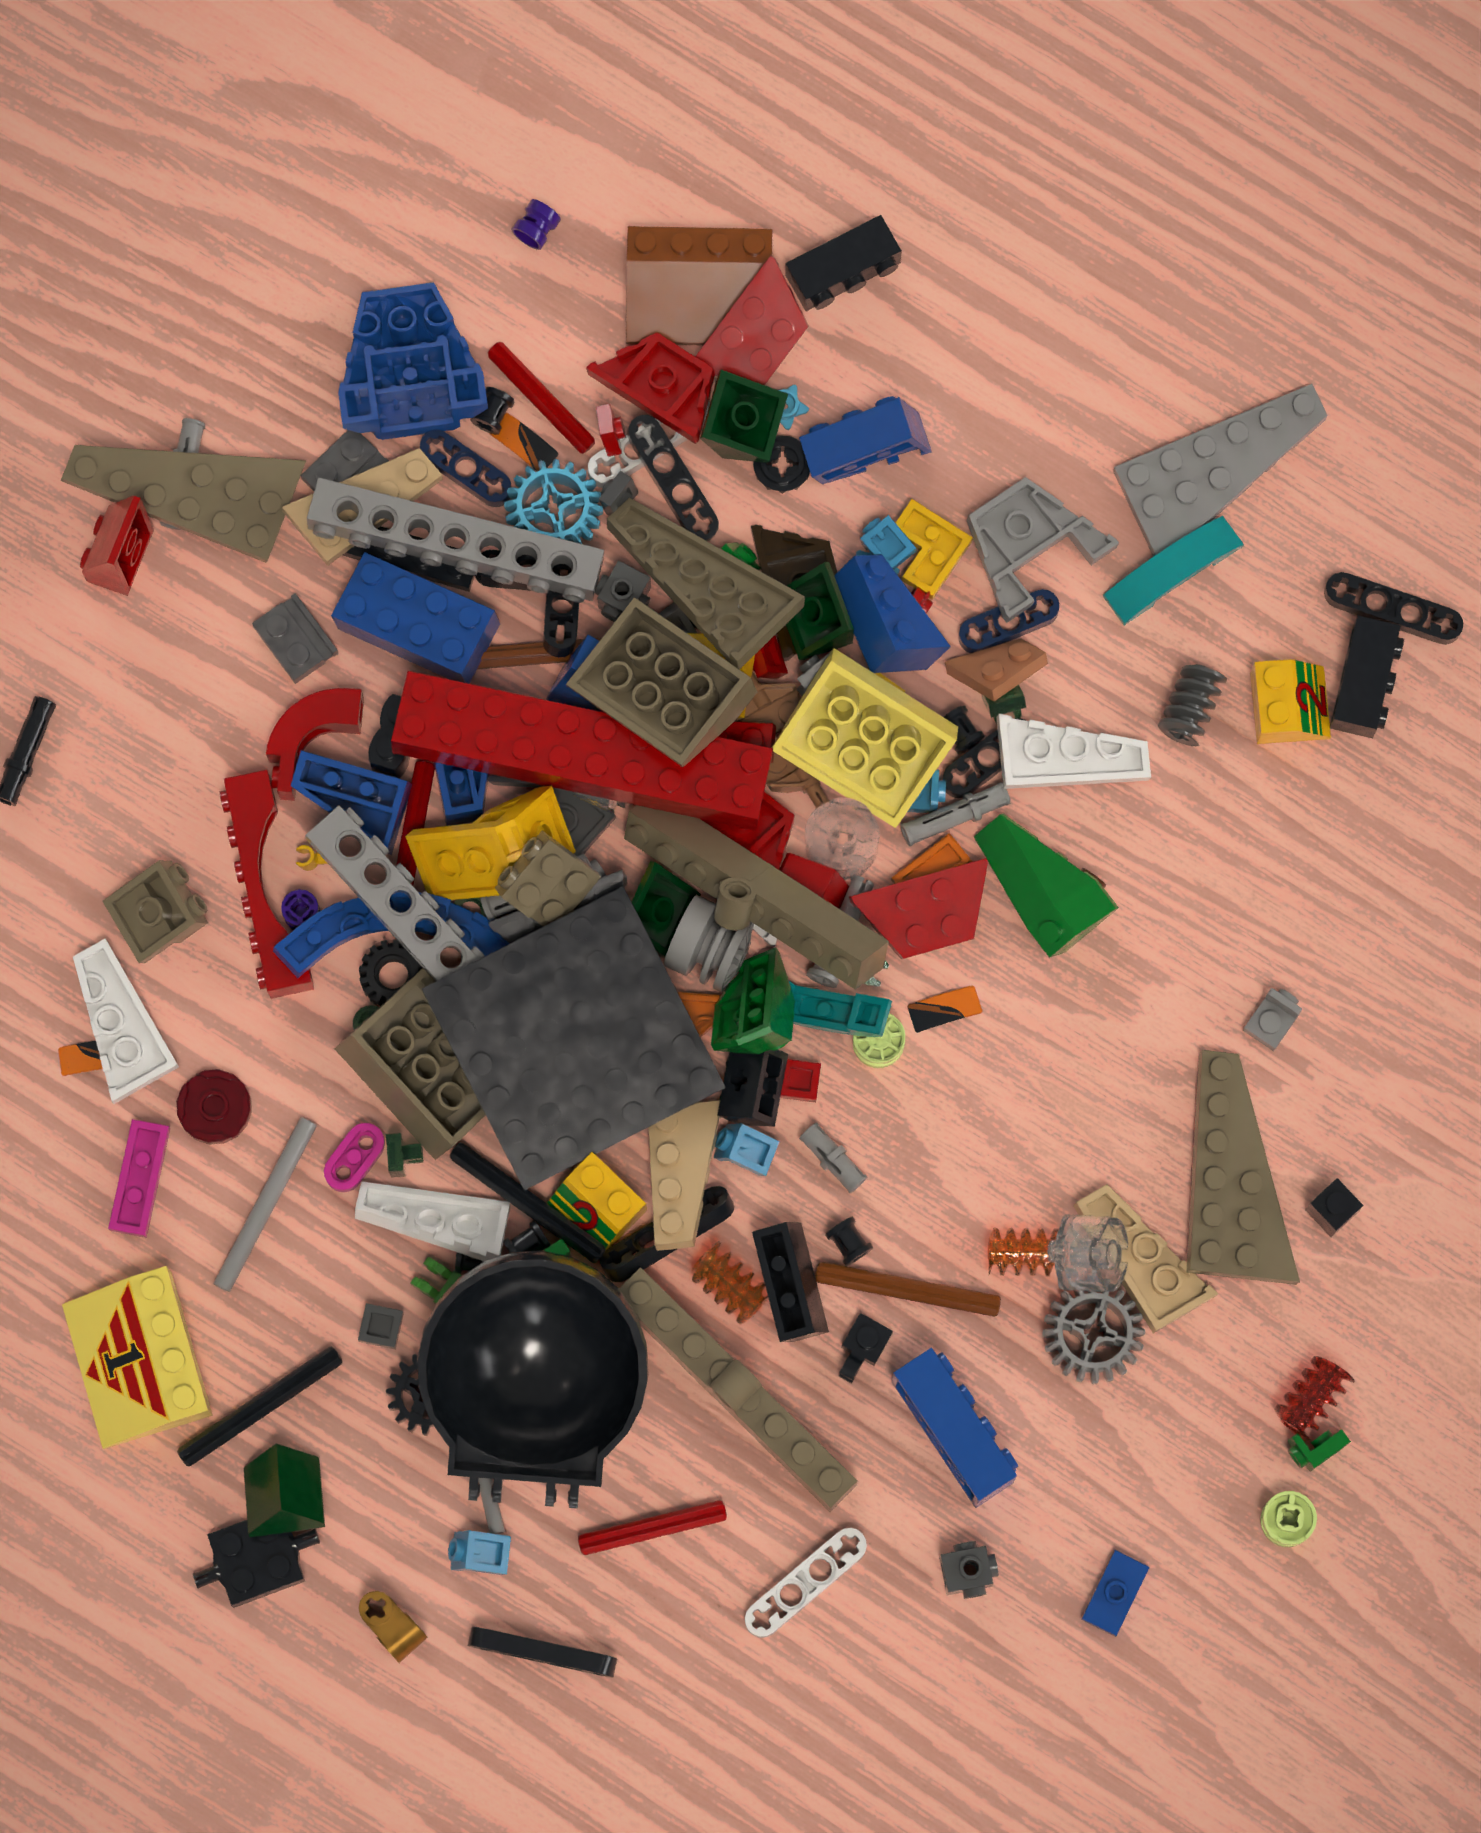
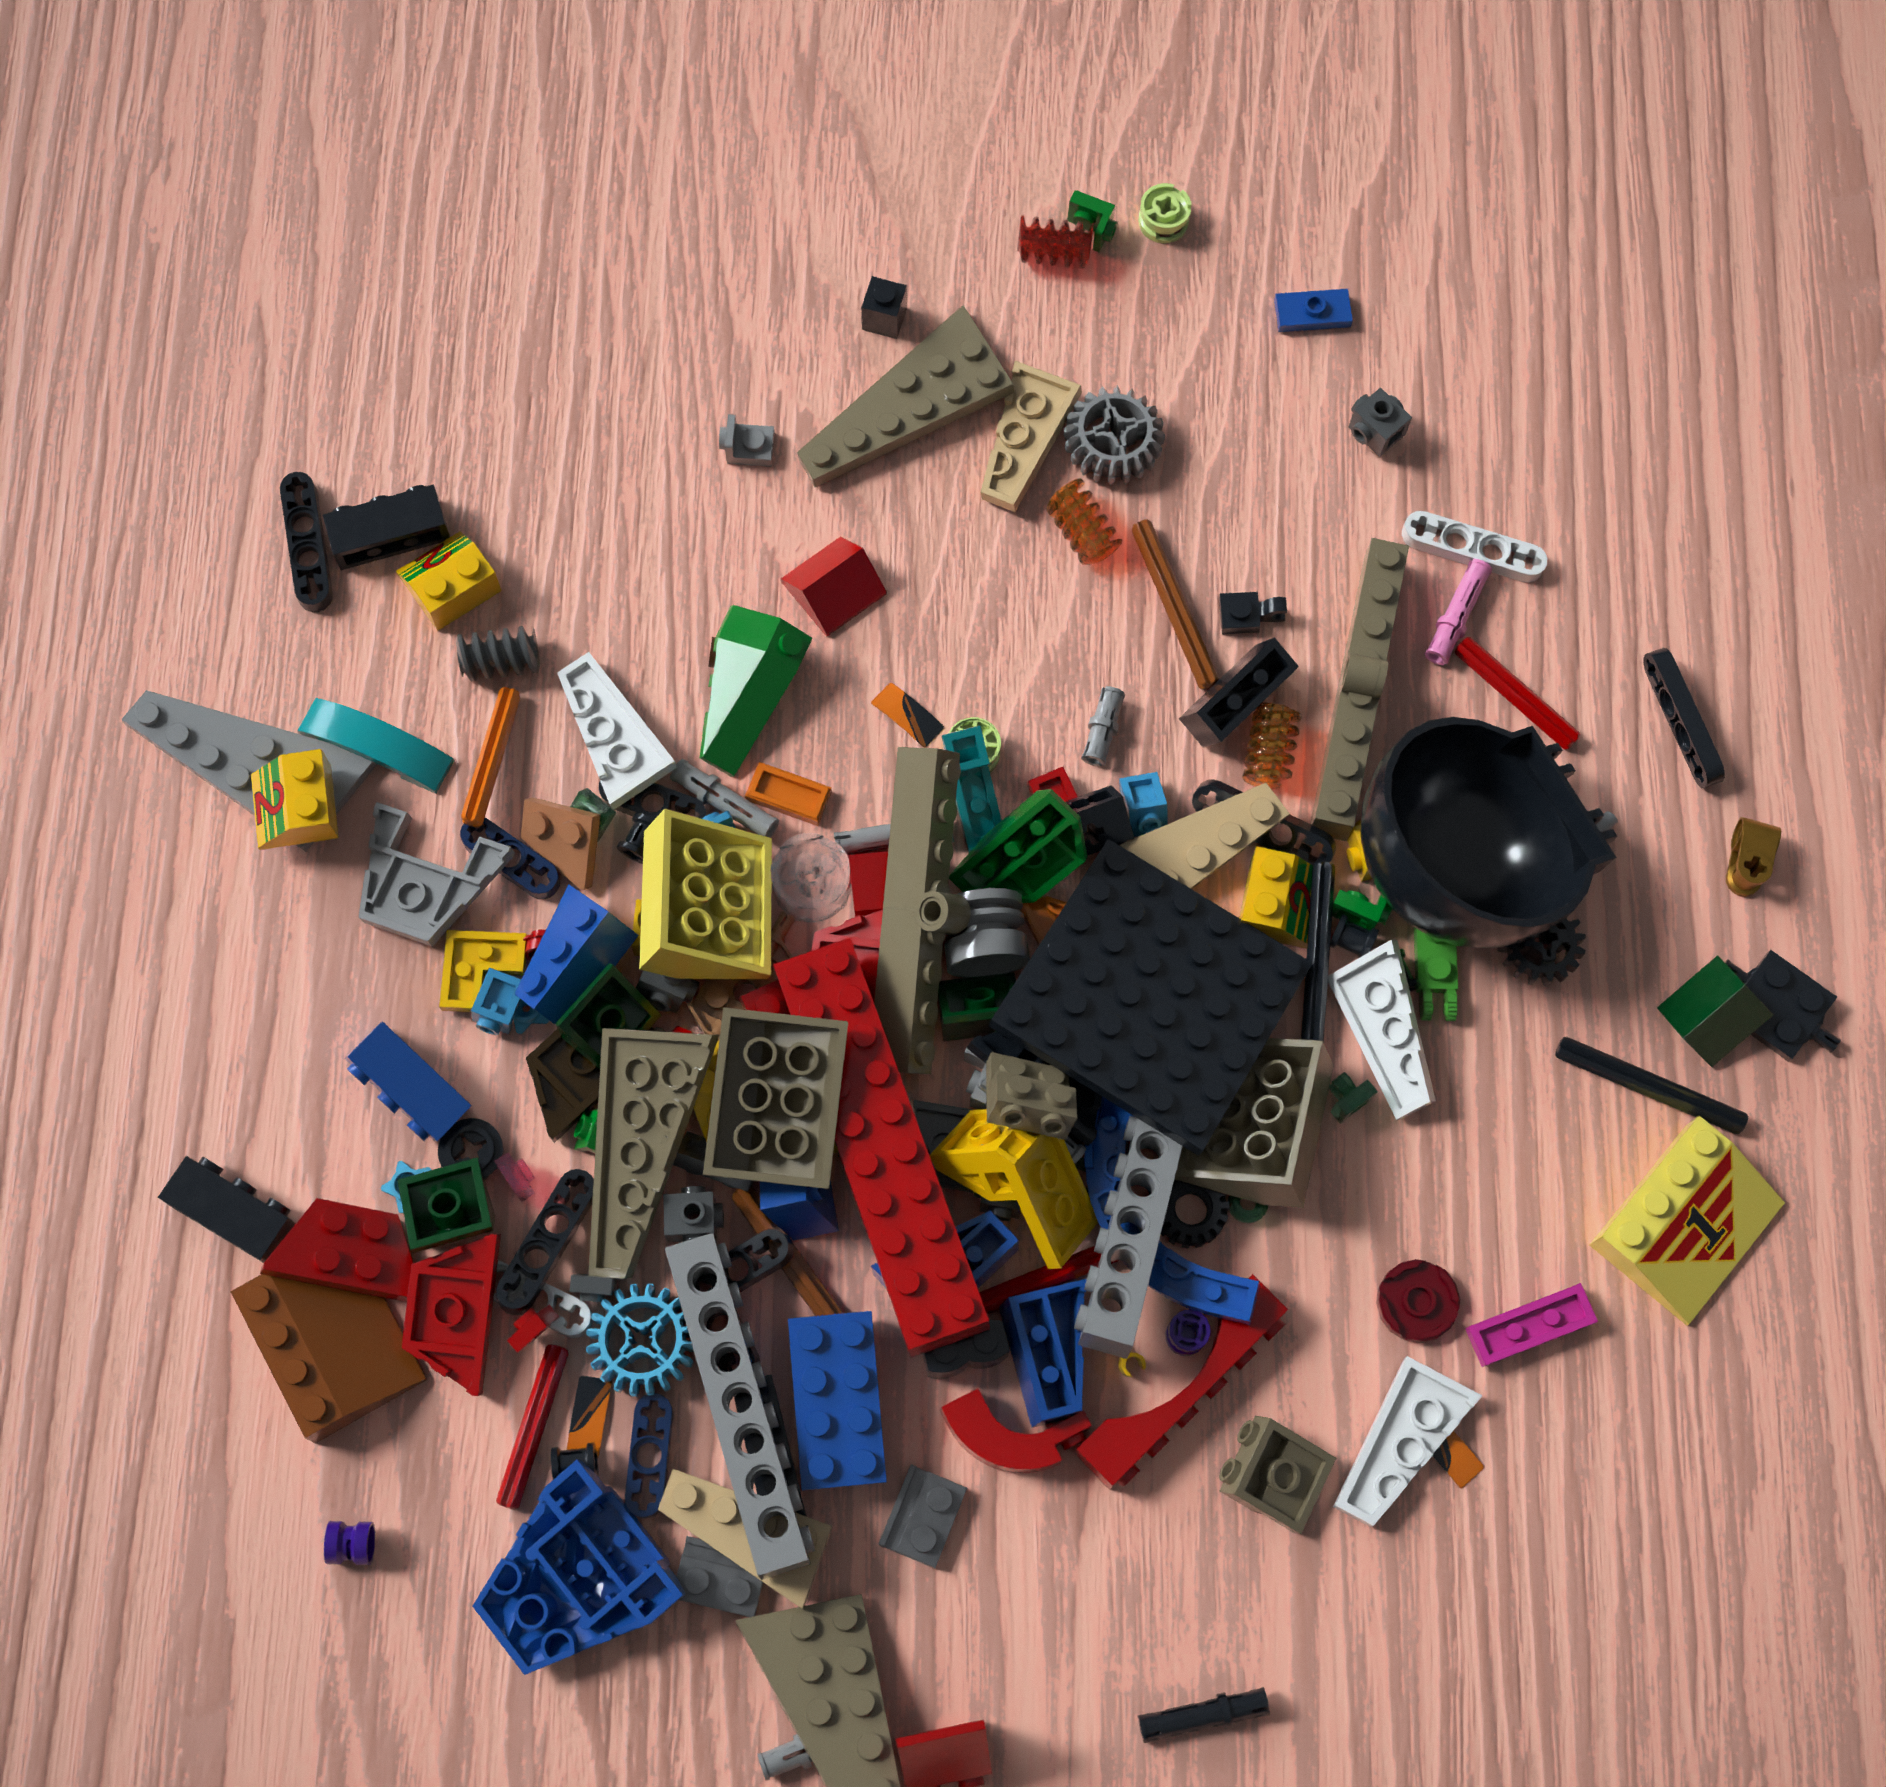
camera: 125 degrees left, 5 degrees down
(265, 1204) = (1474, 1195): light grey piece -> none
(354, 1158) = (1378, 1139): dark pink plate -> none
(380, 1326) = (1511, 1021): dark grey plate -> none
(479, 1552) = (1642, 818): dark azure bracket -> none
(739, 484) = (517, 1175): none -> clear pink plate
(753, 1525) = (1452, 624): none -> bright pink pin
(849, 1241) = (1167, 671): black bush -> none
(926, 910) = (828, 771): red wing -> none
(954, 1427) = (1271, 489): blue brick -> none
(1089, 1253) = (1058, 456): clear brick -> none
(1097, 1014) = (835, 584): none -> red slope
(1103, 650) = (490, 757): none -> orange axle
(1149, 475) = (294, 800): none -> yellow slope

